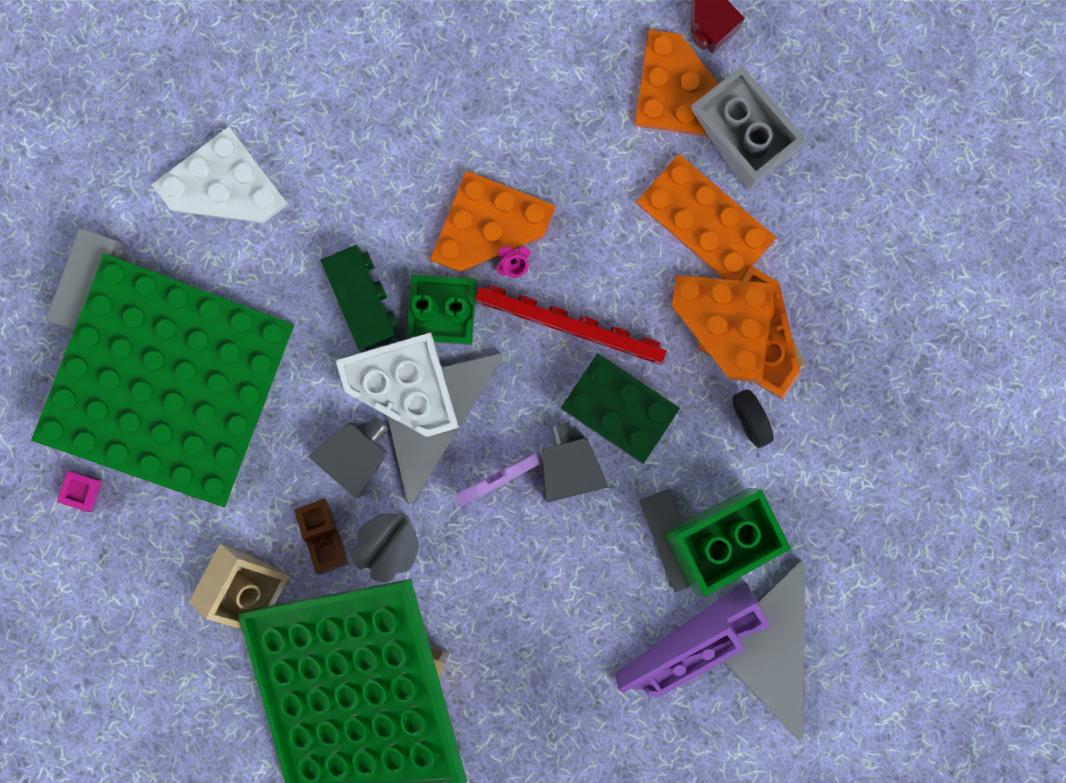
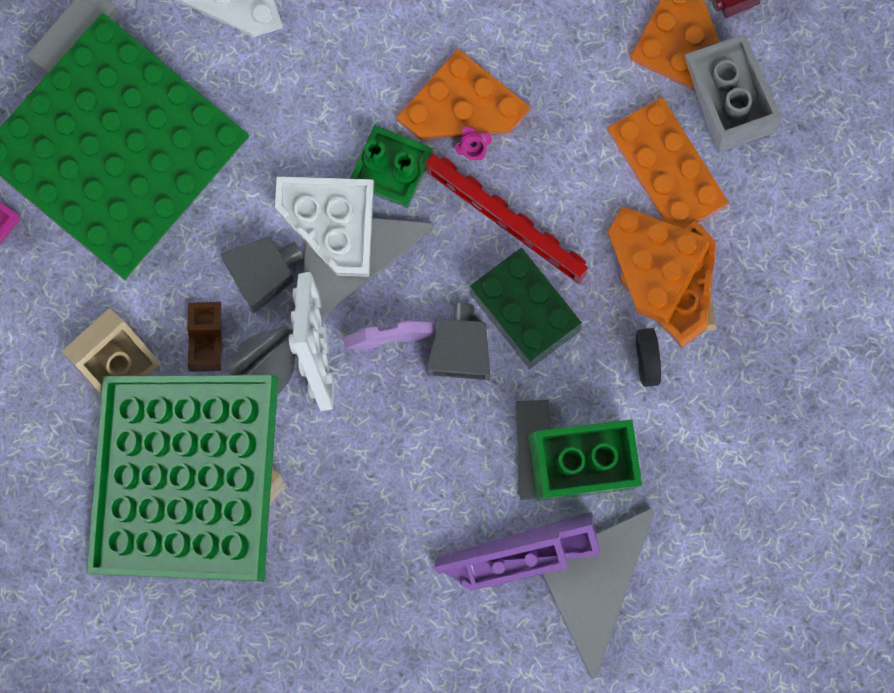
camera: 20 degrees right, 10 degrees down
(360, 297) = (319, 129): dark green brick -> none
(425, 514) = (310, 342): none -> white plate

